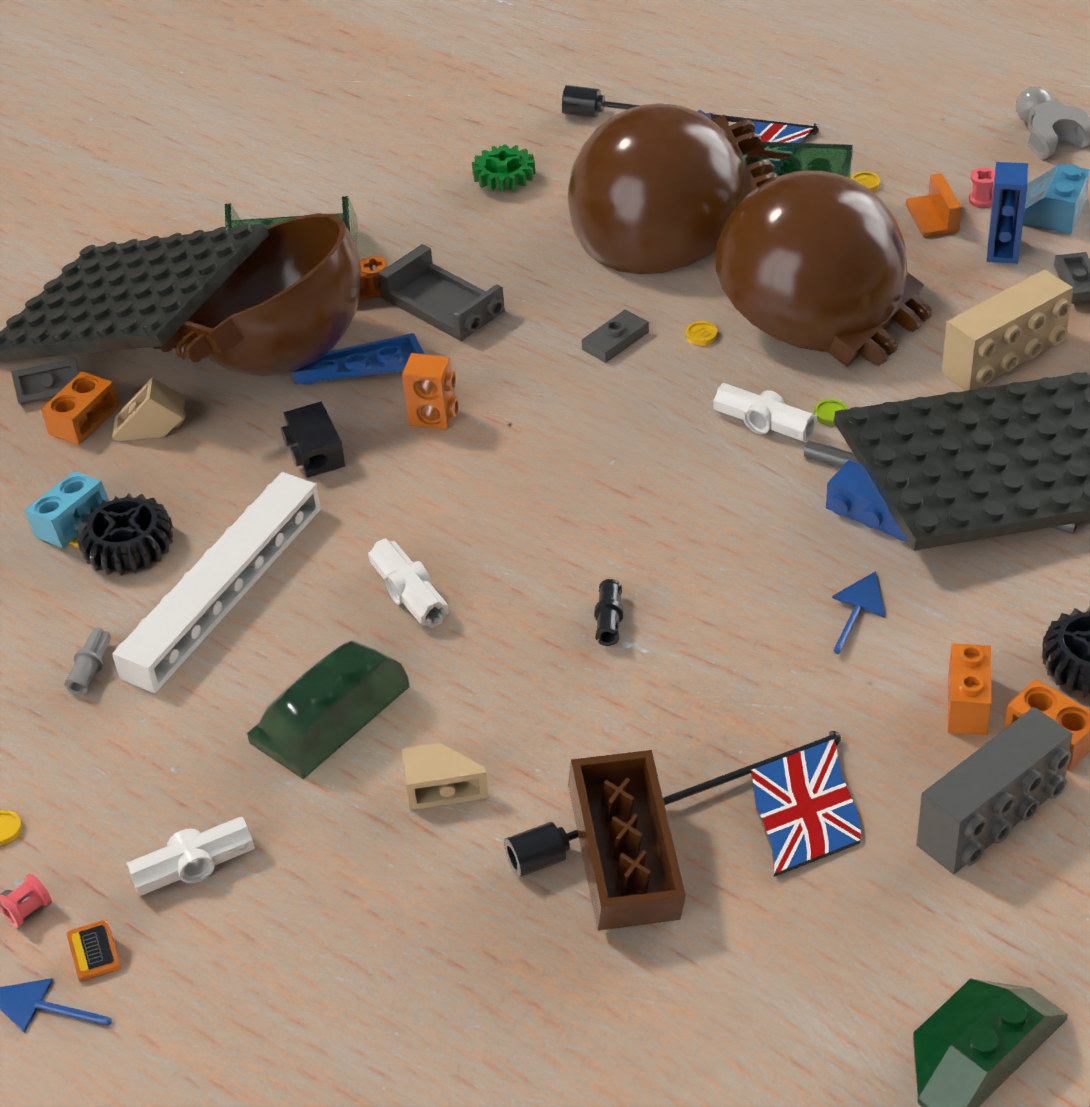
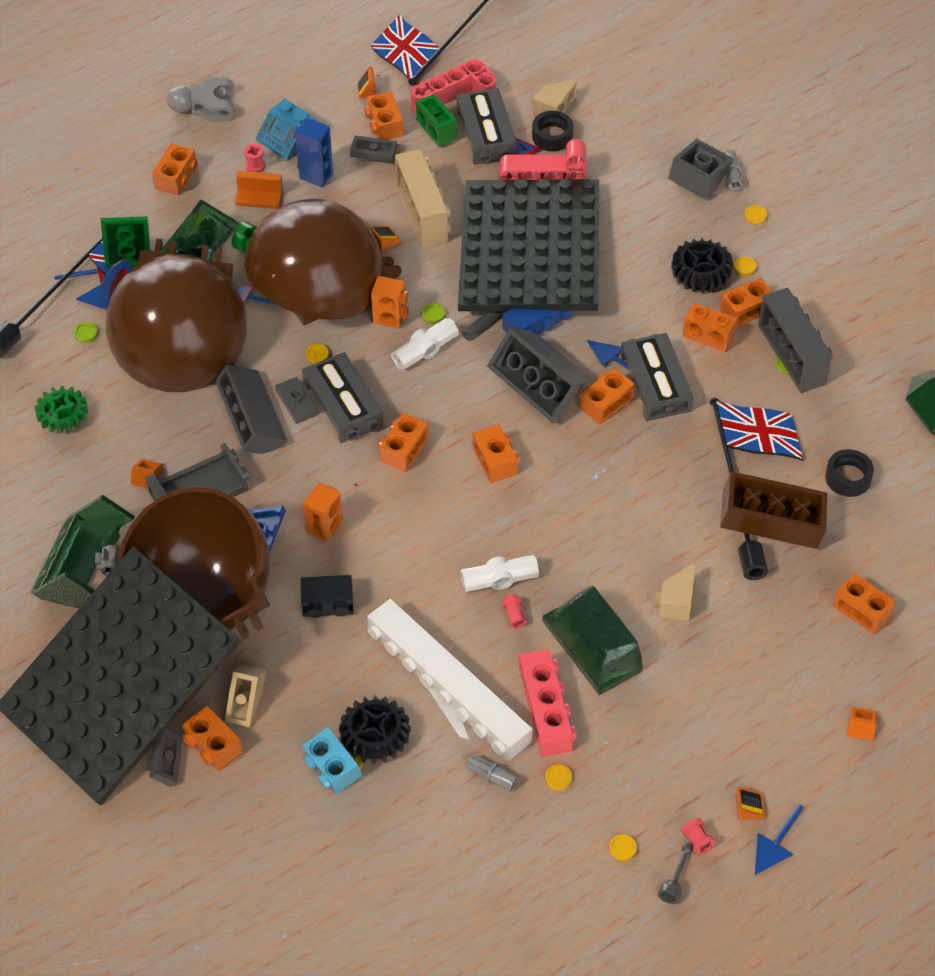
camera: 75 degrees left, 10 degrees up
(102, 732) = (558, 777): none -> yellow piece
(190, 856) = (694, 738): white piece -> none
(207, 681) = (550, 739): none -> coral brick
(280, 1067) = (862, 723): none -> orange slope
(356, 613) = (512, 605): none -> coral pin
(449, 255) = (143, 469): none -> orange slope
(497, 1011) = (861, 607): none -> orange brick
(573, 298) = (250, 410): none -> dark grey brick
(586, 438) = (403, 441): none -> orange brick
(608, 524) = (495, 453): none -> orange brick
(608, 612) = (571, 475): black pin -> none
(630, 363) = (343, 397): none -> dark grey panel
(756, 105) = (124, 239): none -> green slope
(766, 522) = (537, 372): none -> dark grey windscreen
(769, 610) = (606, 396): none -> orange brick
(773, 964) = (846, 487): none -> black tyre
(803, 351) = (389, 302): none -> orange brick
(834, 651) = (657, 376): none -> dark grey panel
(919, 136) = (174, 169): none -> orange brick
(929, 329) = (385, 237): none -> orange slope

